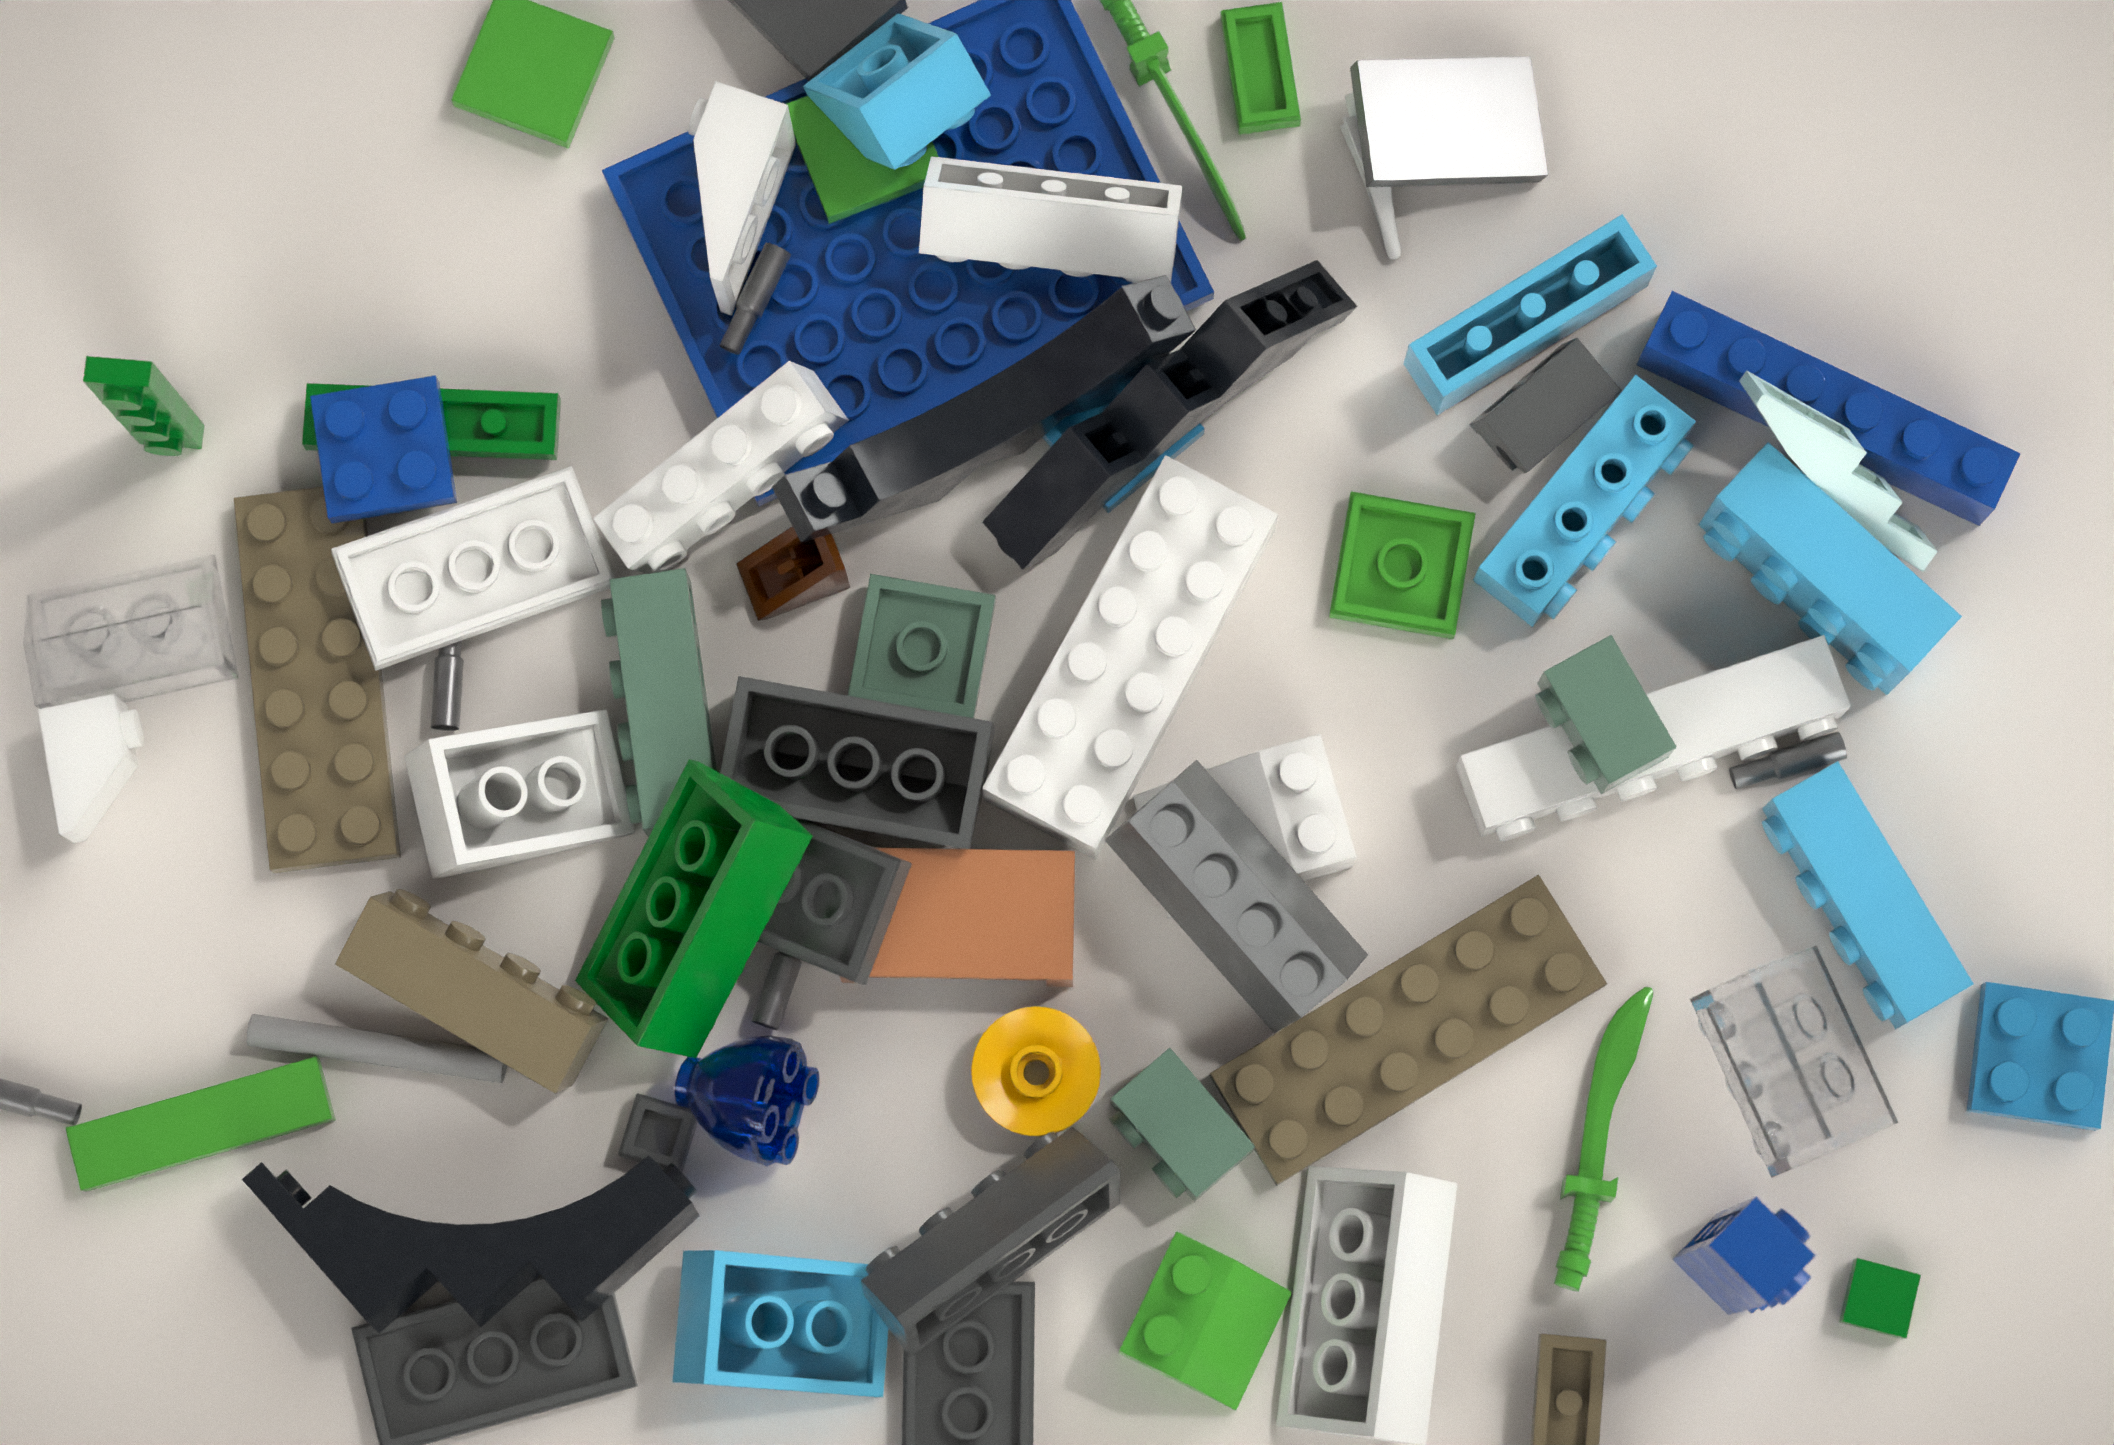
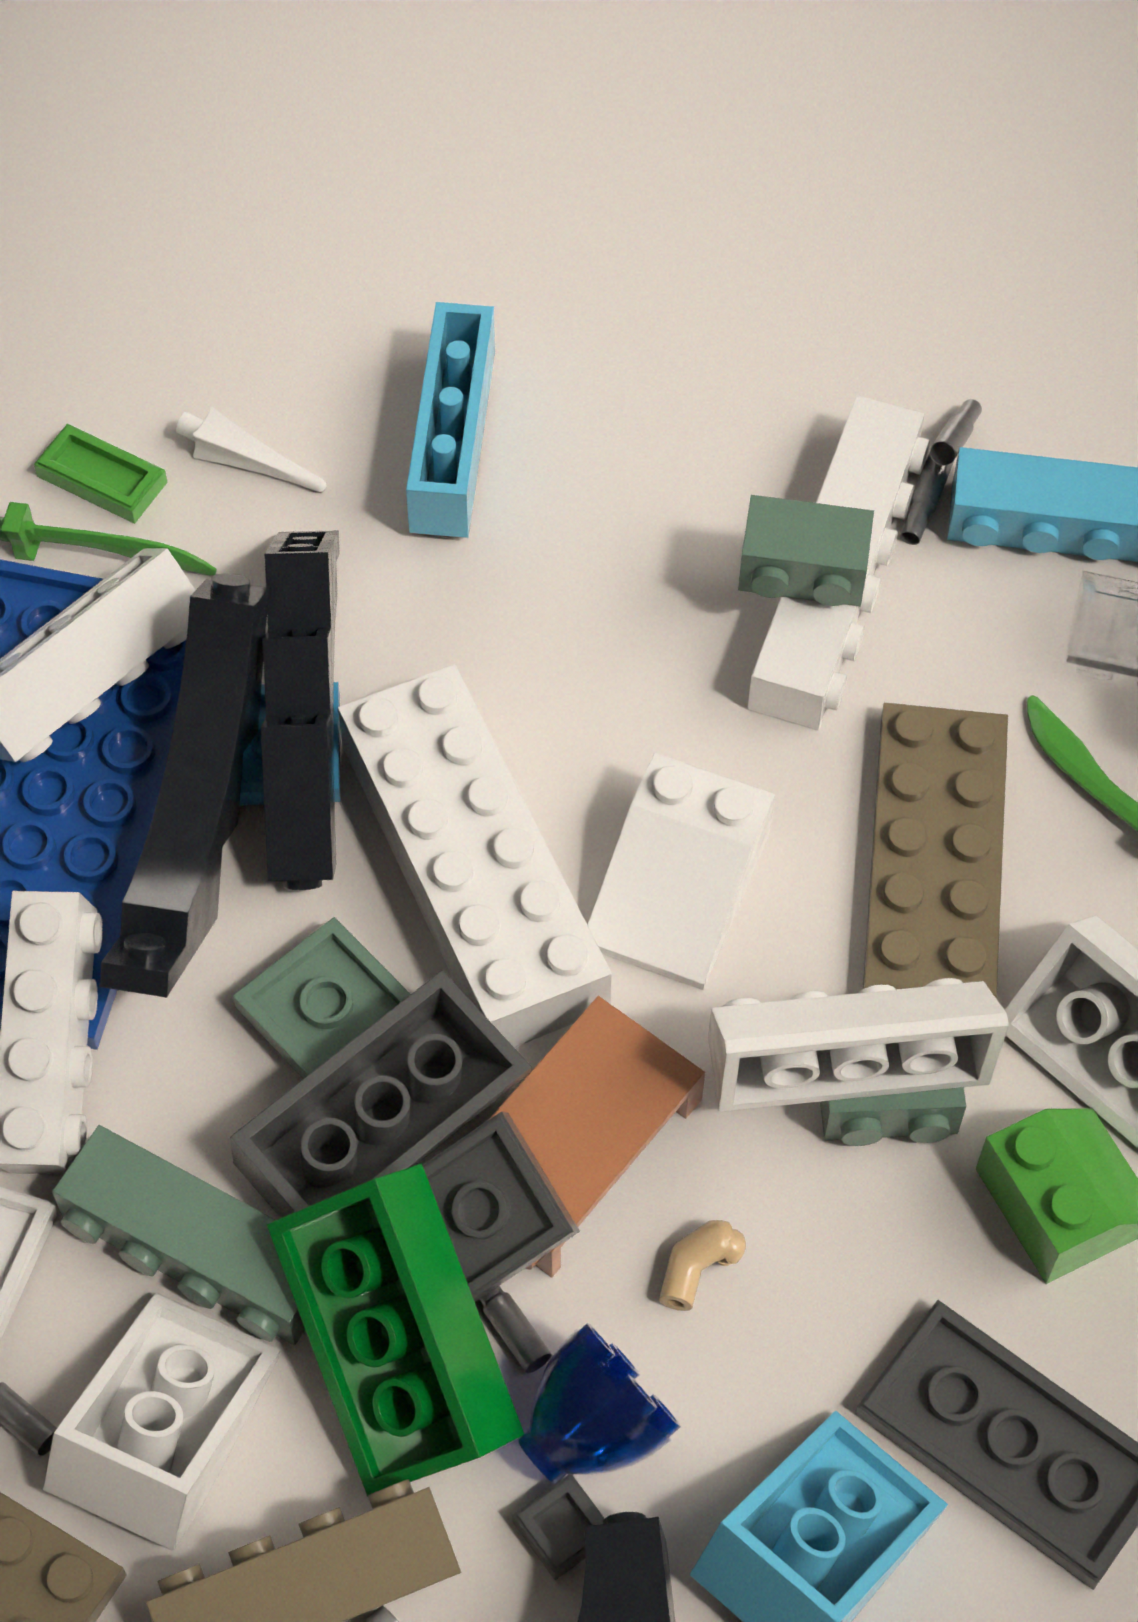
camera: 55 degrees left, 20 degrees down
(792, 573) = (176, 1050): reddish brown slope -> none
(934, 1076) = (694, 1253): none -> tan arm
(991, 1238) = (879, 1294): dark grey slope -> none
(1030, 1037) = (763, 1139): yellow dish -> none
(1166, 1075) = (855, 1044): none -> white slope
(1237, 898) = (739, 908): slope -> none
(1402, 565) = (561, 636): bright green tile -> none
(1448, 121) = (259, 377): tile -> none
(1546, 406) = (526, 461): dark grey hinge -> none
(1585, 501) = (622, 485): medium azure brick -> none
(1826, 570) = (808, 359): medium azure brick -> none
(1831, 460) = (734, 298): light aqua slope -> none
(1867, 742) = (955, 433): none -> flat silver pin
(1902, 440) = (684, 298): blue brick -> none

